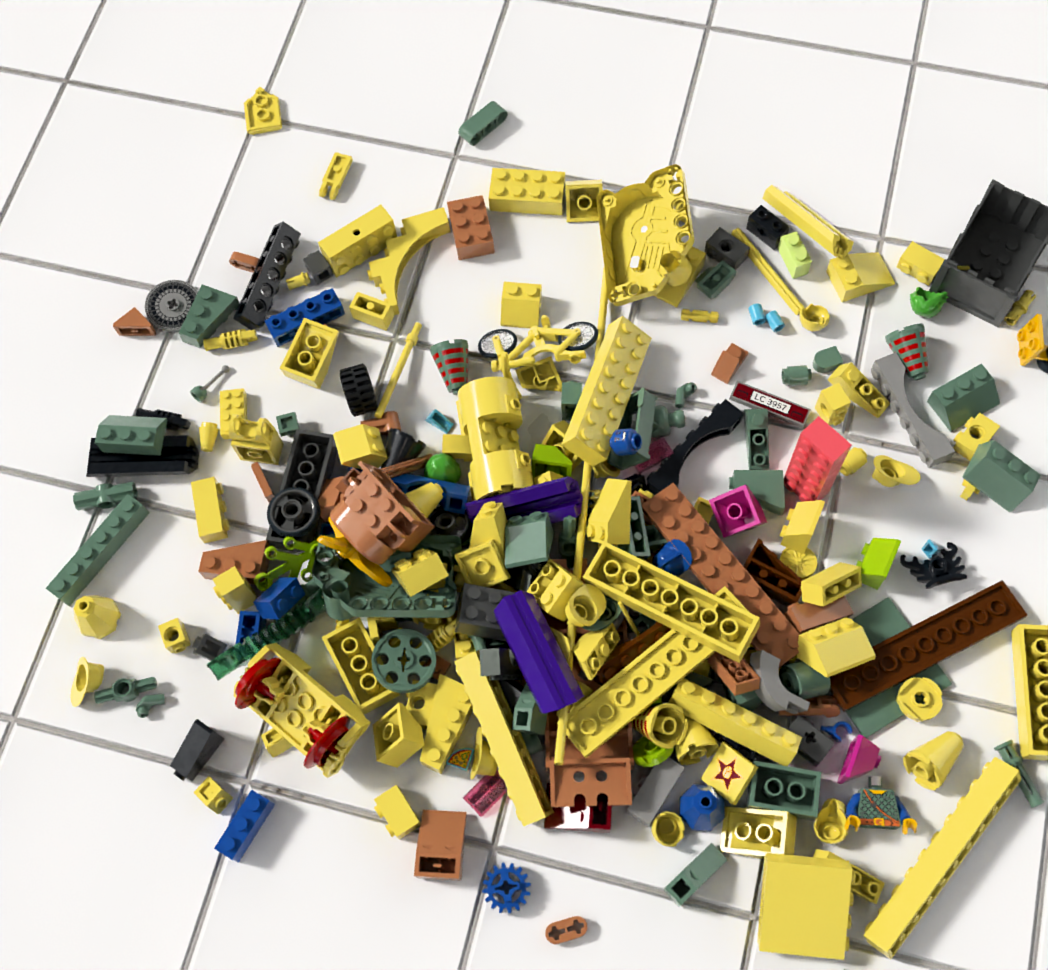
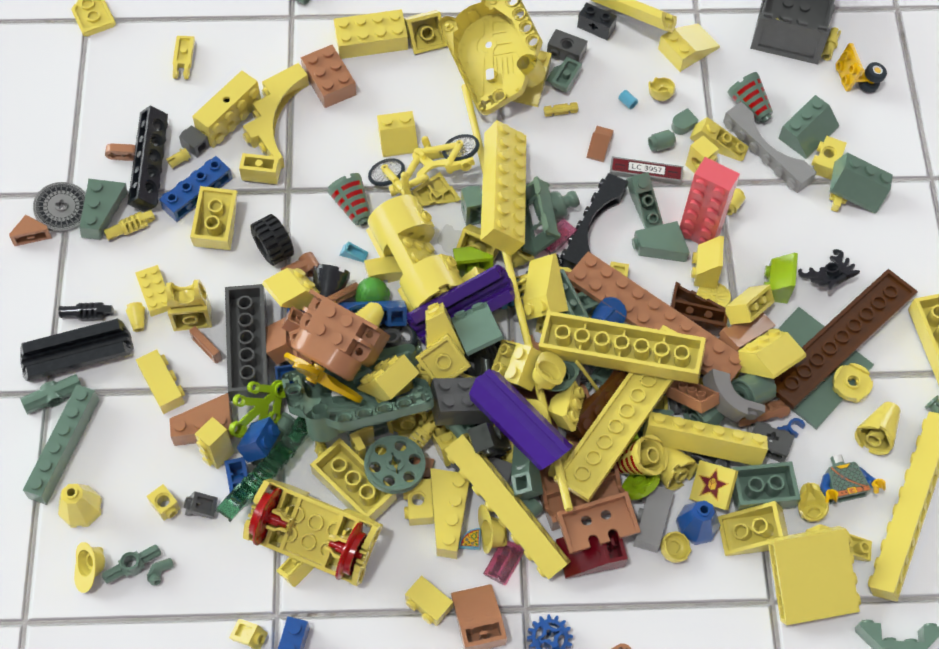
camera: 25 degrees left, 5 degrees down
(131, 435) = (63, 330): sand green slope -> none
(195, 751) = (220, 597): black slope -> none
(199, 392) = (114, 279): hinge -> none
(281, 500) = (264, 351): dark grey wheel -> none
(287, 424) = (213, 286): sand green tile -> none
(397, 736) = (408, 533): light yellow slope -> none
(411, 341) = (304, 187): light yellow bar -> none
(567, 540) = (509, 319): sand green axle -> none
(625, 442) = (537, 224): blue head -> none
(684, 392) = (567, 177): sand green arm -> none
(695, 874) = (710, 580): sand green slope -> none
(737, 511) = (649, 265): dark pink slope -> none
(757, 314) = (610, 97): medium azure hinge -> none
(769, 273) = (611, 61): light yellow axle -> none
(794, 255) = (627, 39): yellowish green brick -> none
(859, 760) = (818, 444): dark pink slope -> none
(893, 472) = (770, 202): light yellow piece -> none
(920, 263) = (737, 24): light yellow brick -> none
(927, 303) = (754, 56): bright green hair -> none
(930, 549) = (821, 258): medium azure piece -> none

